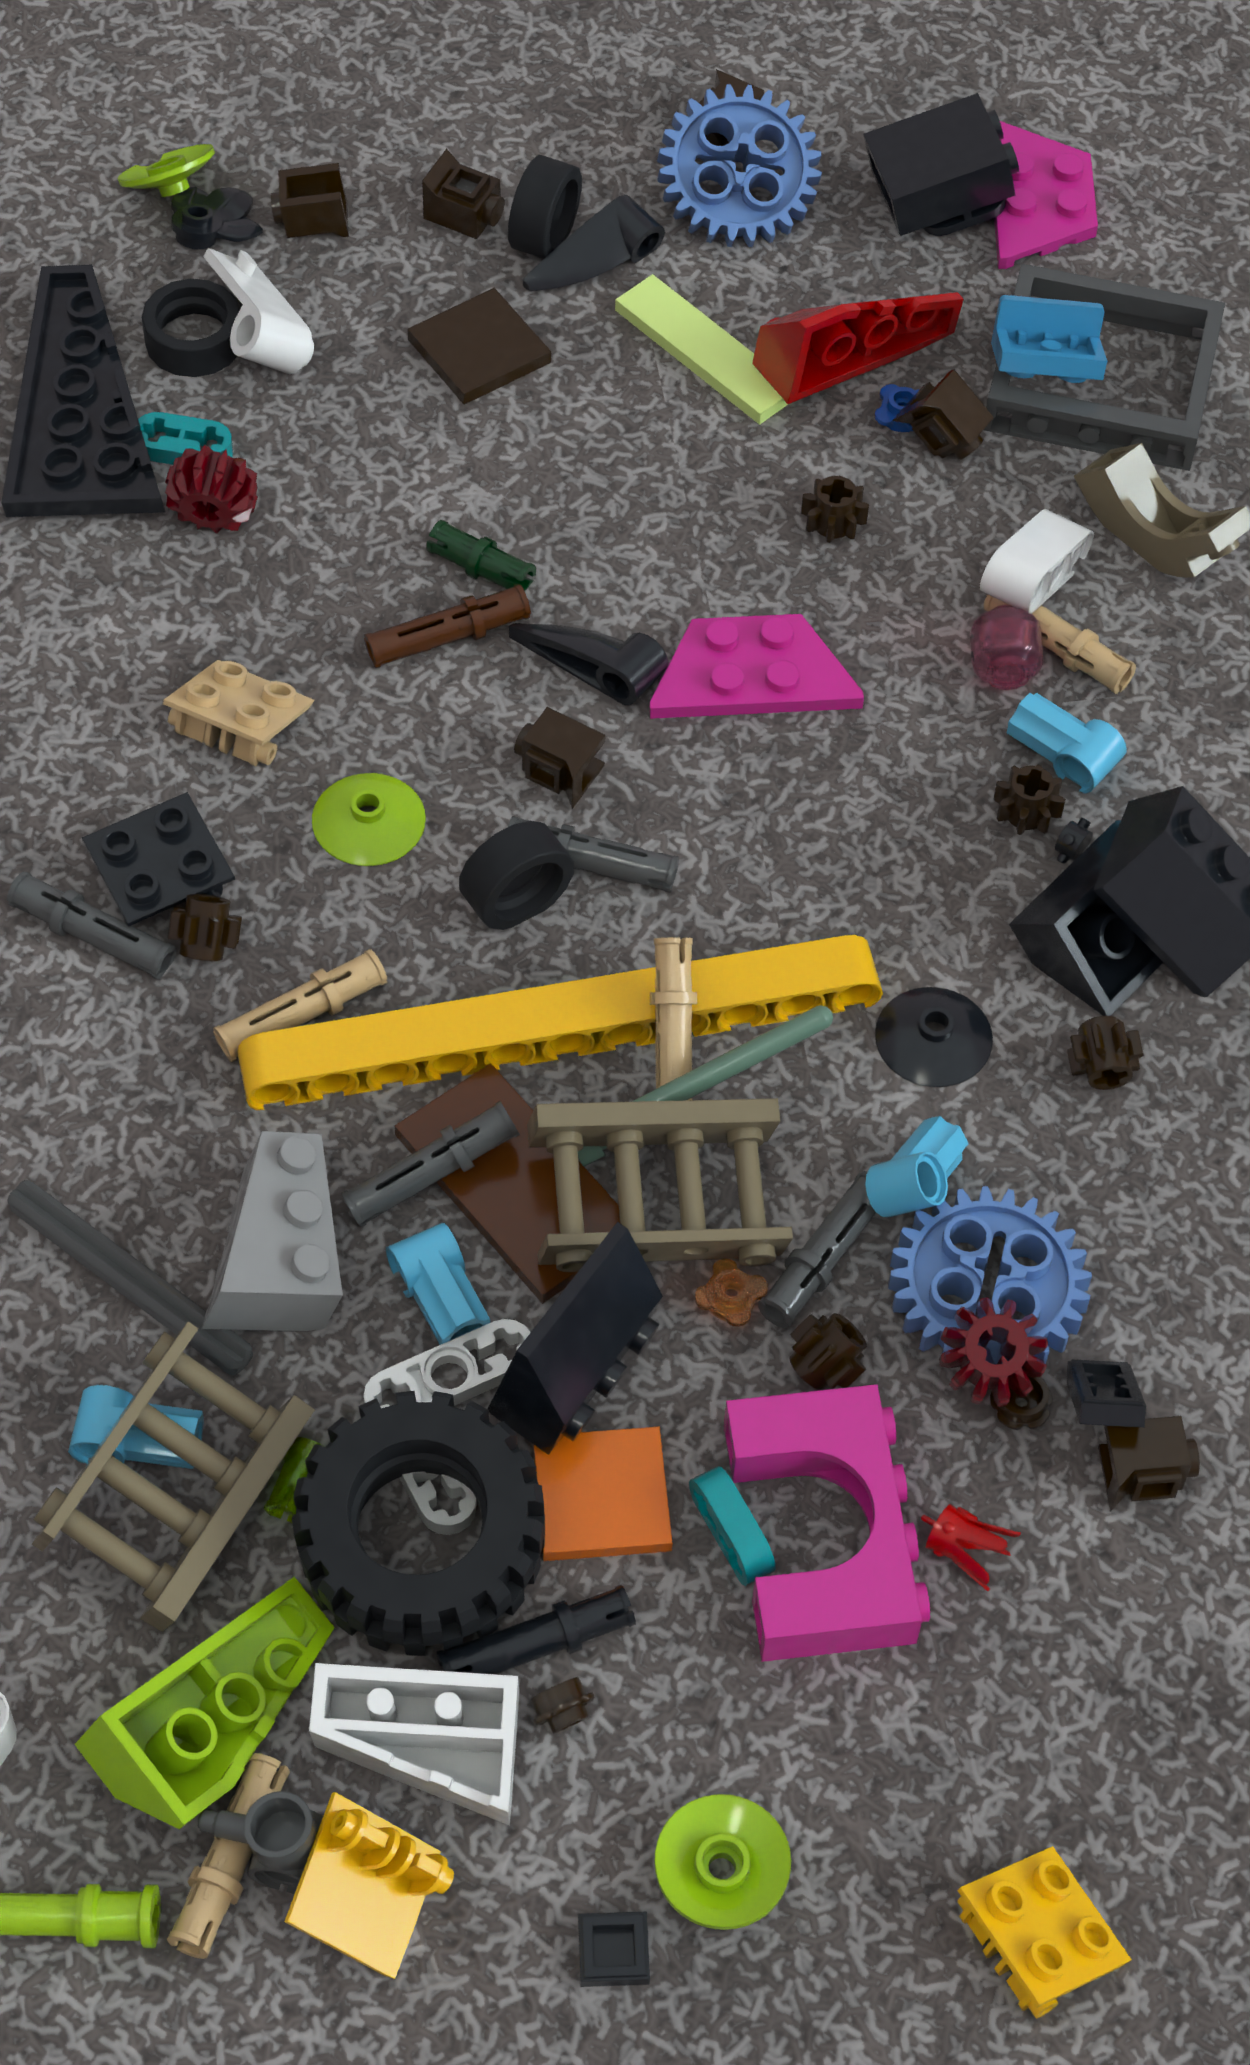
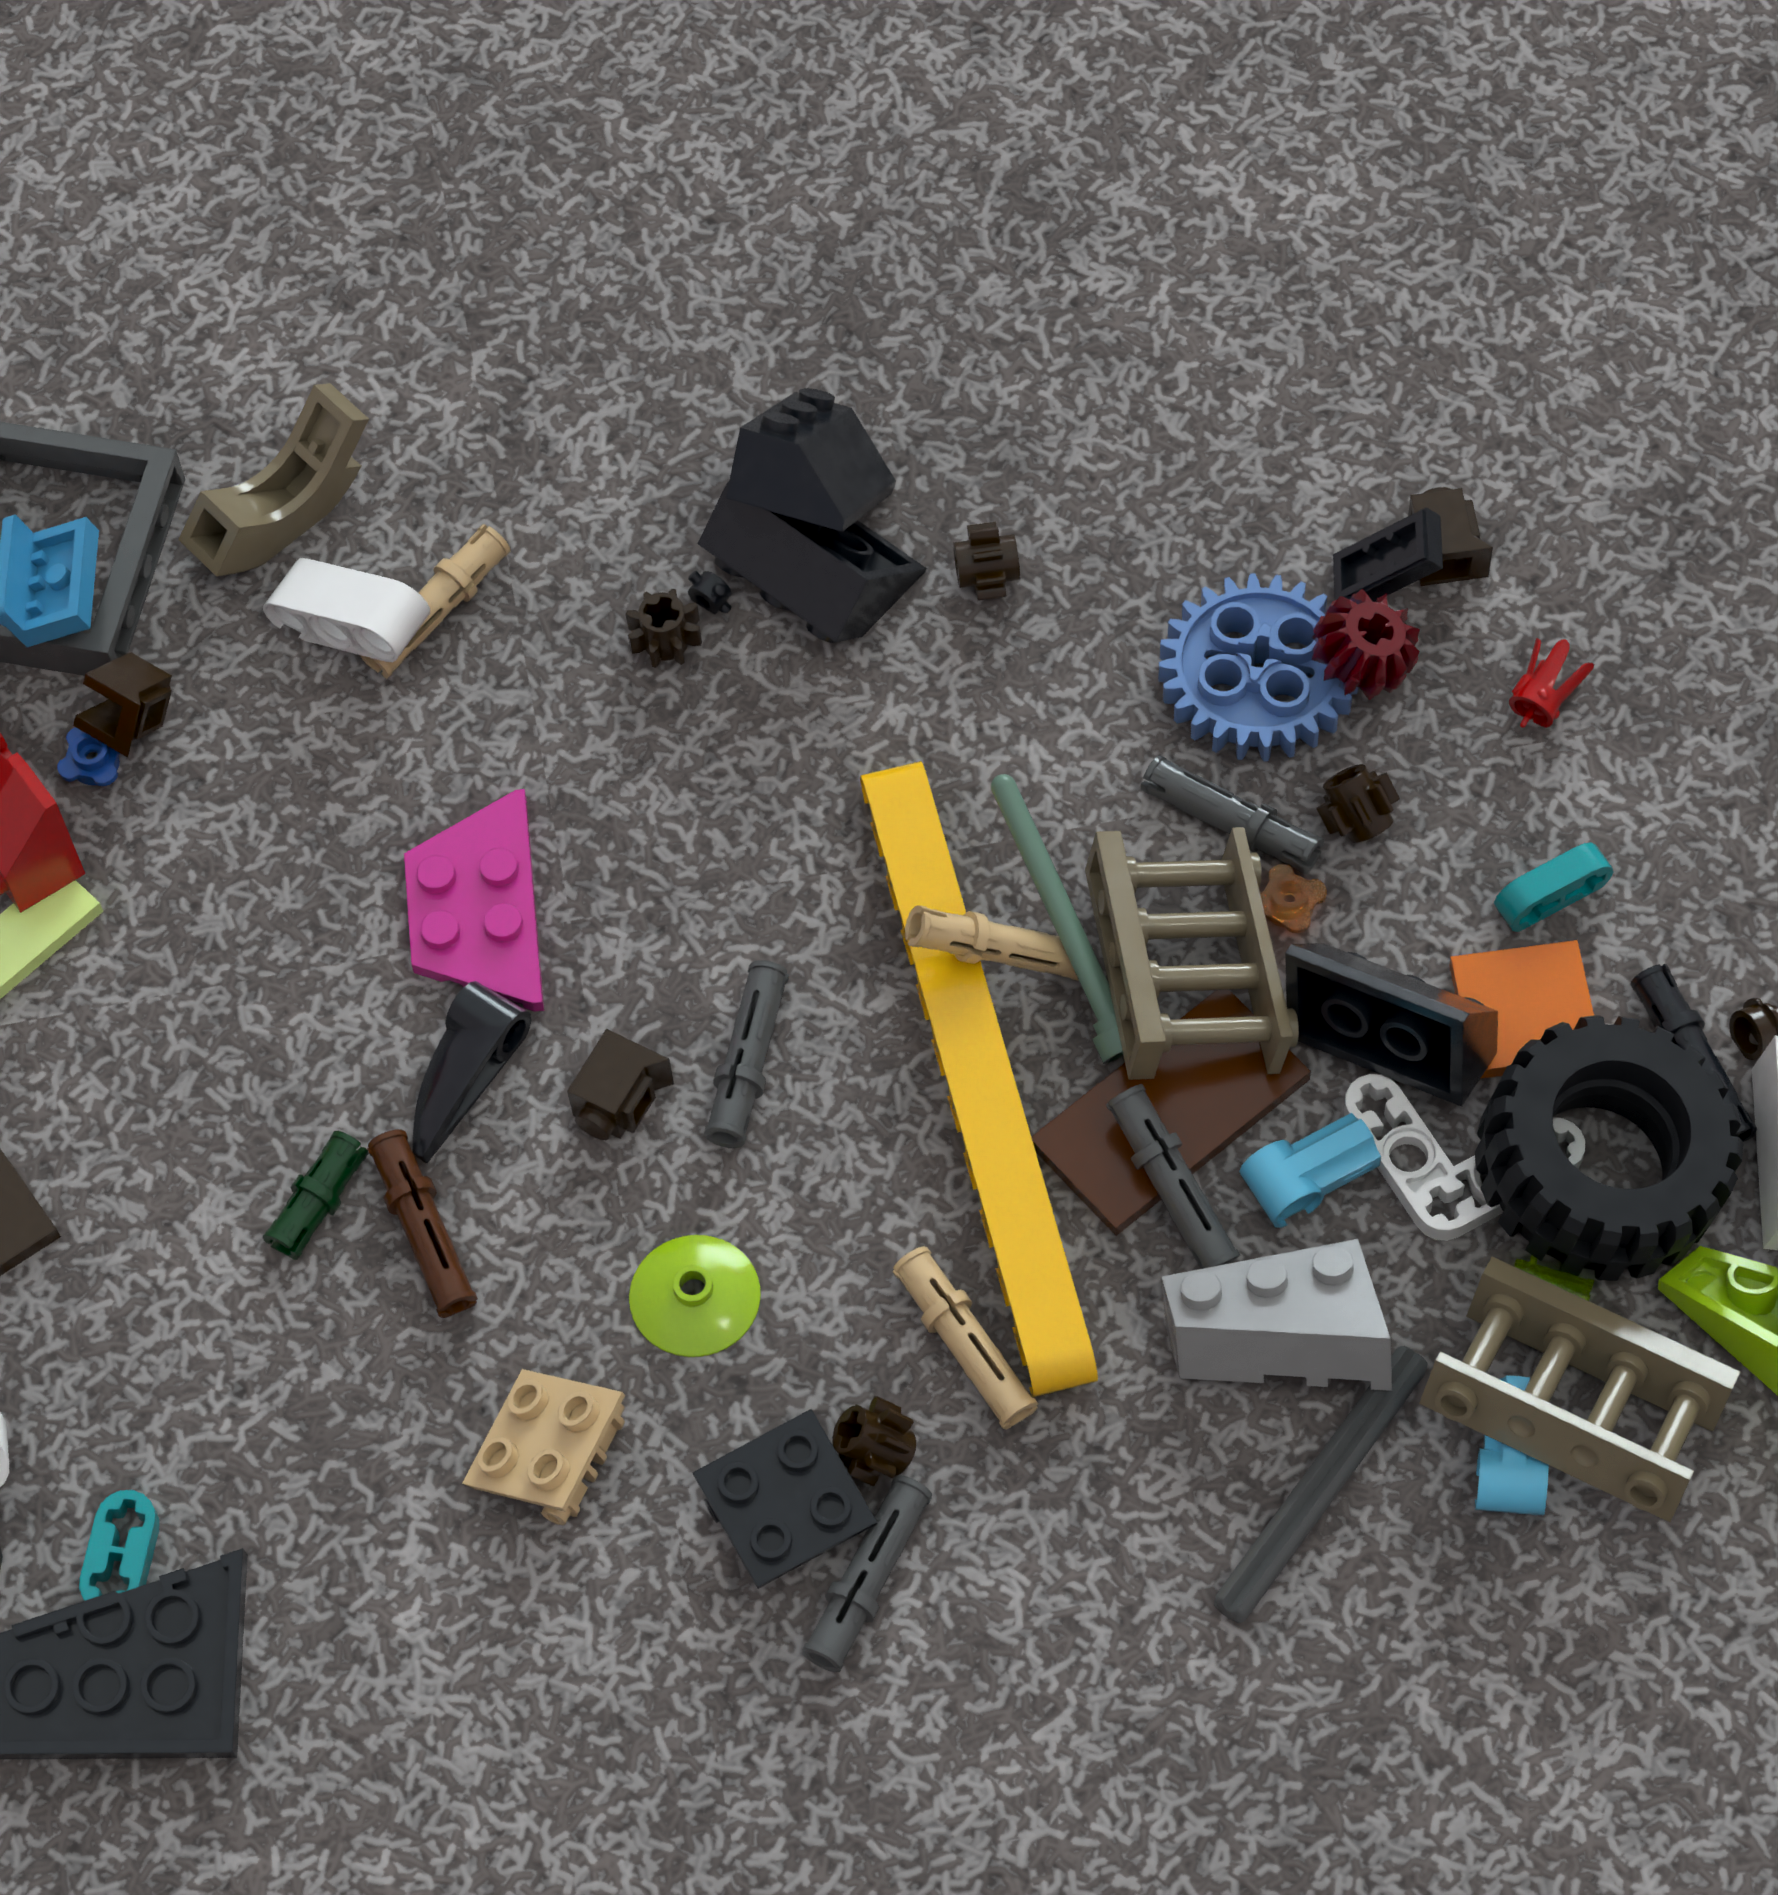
camera: 85 degrees left, 5 degrees up
(211, 489) = (226, 1493): dark red gear -> none
(516, 874) = (802, 1110): black tyre -> none
(835, 508) = (252, 819): dark brown gear -> none
(847, 1441) = (1608, 758): dark pink arch -> none
(918, 1170) = (1156, 722): medium azure piece -> none
(929, 1055) = (964, 747): black dish -> none
(1006, 647) = (458, 646): clear pink head -> none
(1075, 748) = (590, 583): medium azure piece -> none

